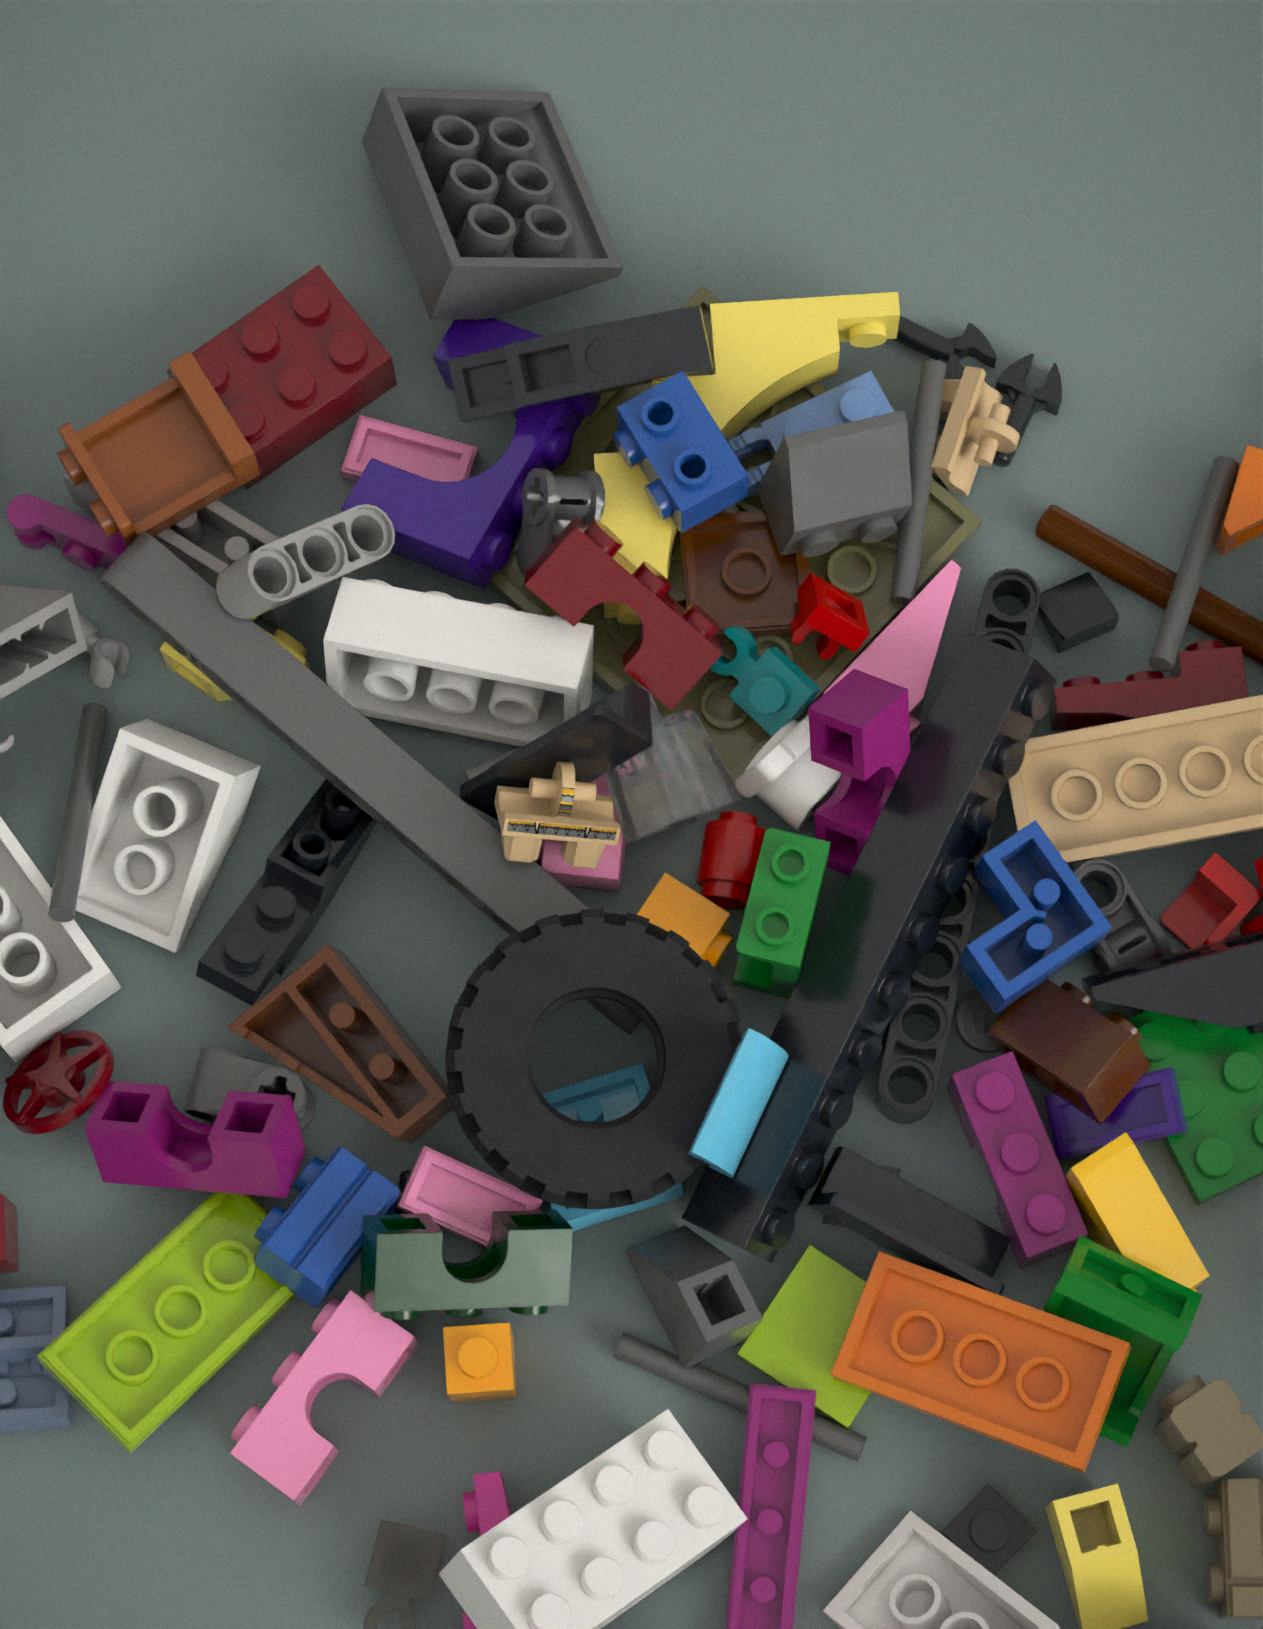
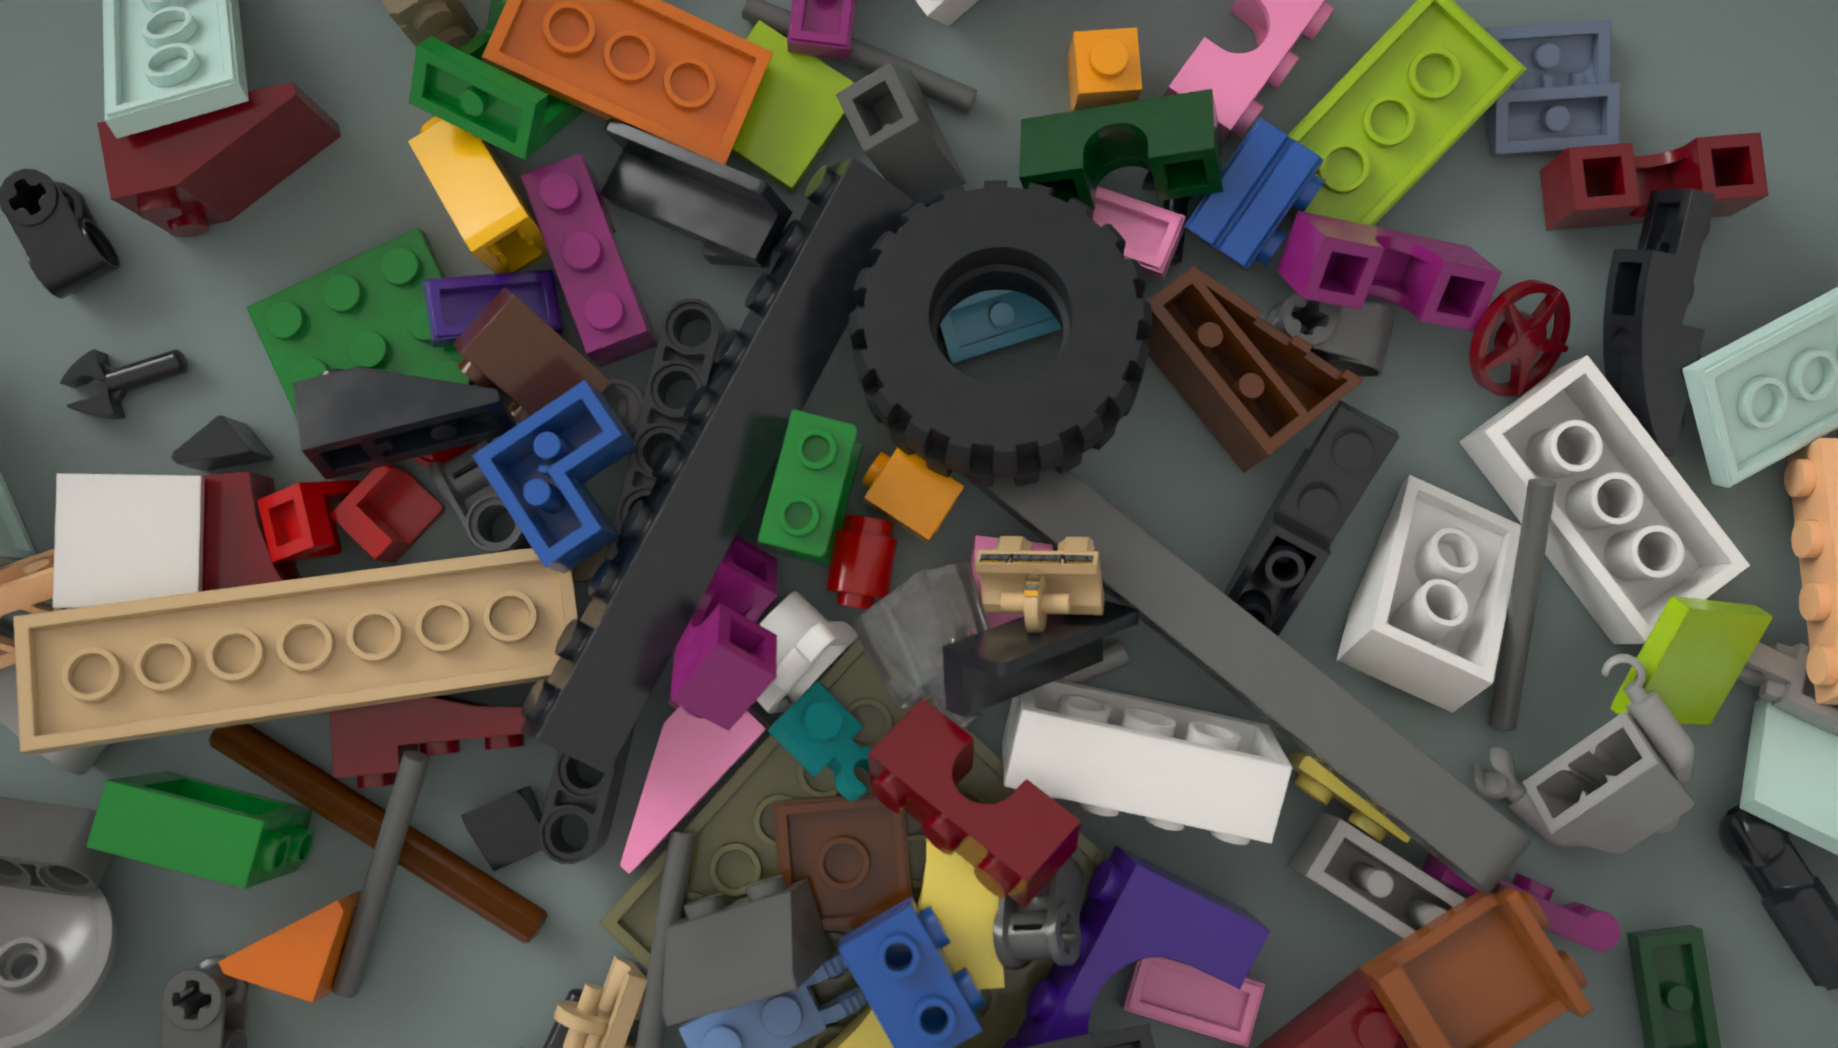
camera: 175 degrees right, 10 degrees up
(282, 565) = (1340, 851): light grey beam -> none
(739, 1102) = (858, 269): medium azure slope -> none
(830, 612) = (757, 810): red tile -> none

